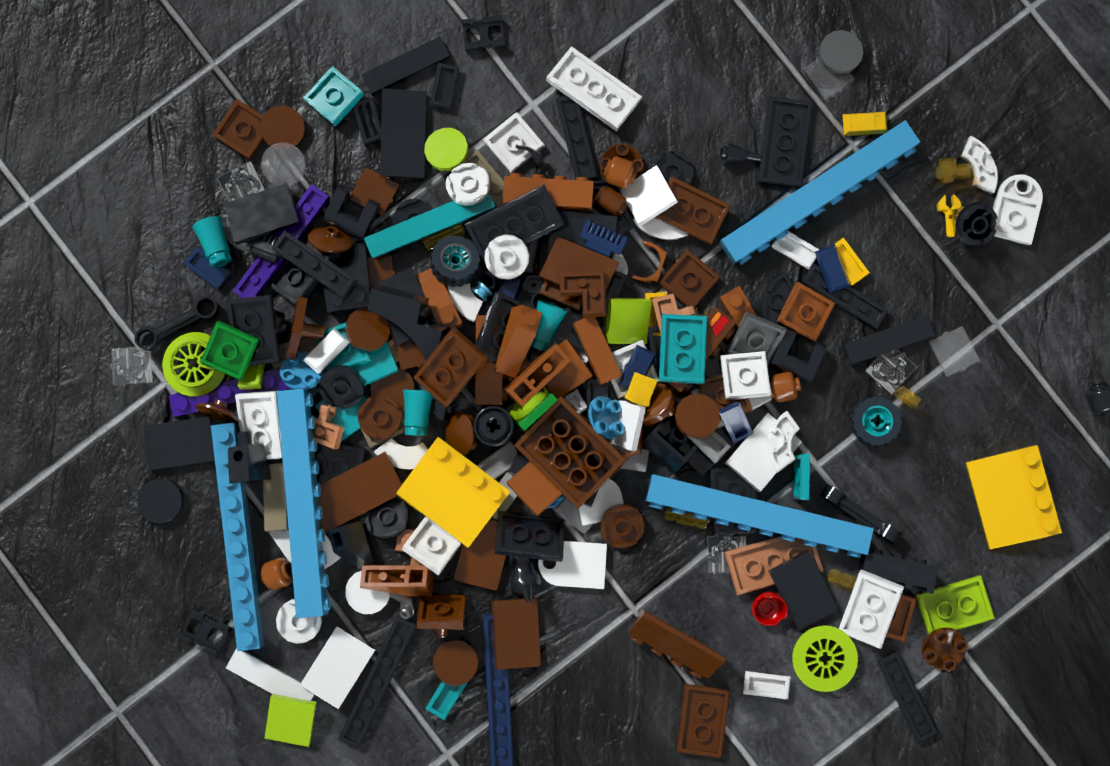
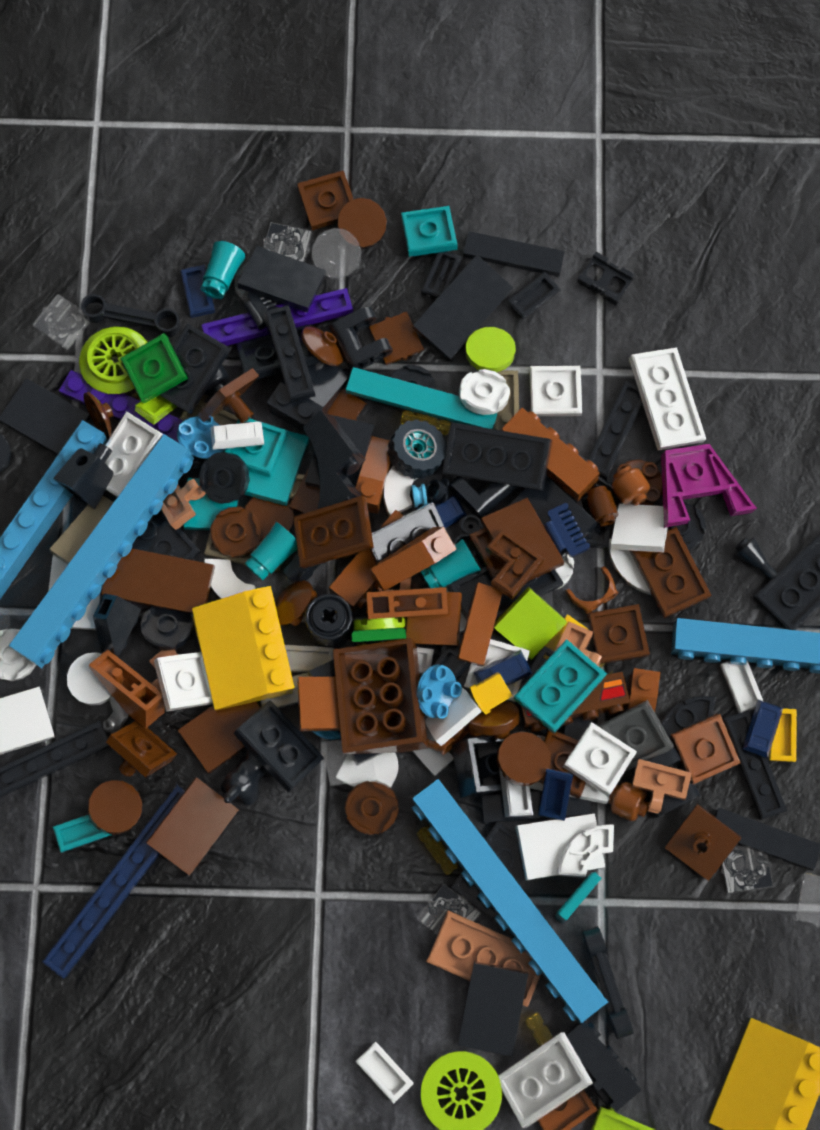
camera: 40 degrees right, 10 degrees down
(277, 573) = (26, 595): dark orange head -> none
(367, 330) = (288, 446): reddish brown tile -> none
(506, 257) = (466, 479): white tile -> none
(537, 155) = (567, 416): black cap -> none
(581, 566) = (302, 812): white tile -> none
(655, 128) = (695, 474): none -> magenta wing
(676, 644) = (329, 956): reddish brown slope -> none
(703, 720) = (296, 1056): reddish brown tile -> none
(769, 609) = (446, 999): red hair -> none
(796, 359) = (660, 781): none -> nougat plate
(851, 375) = (703, 842): none -> reddish brown tile
(866, 430) = (676, 905): black wheel -> none
(907, 396) = (741, 906): clear yellow tile -> none

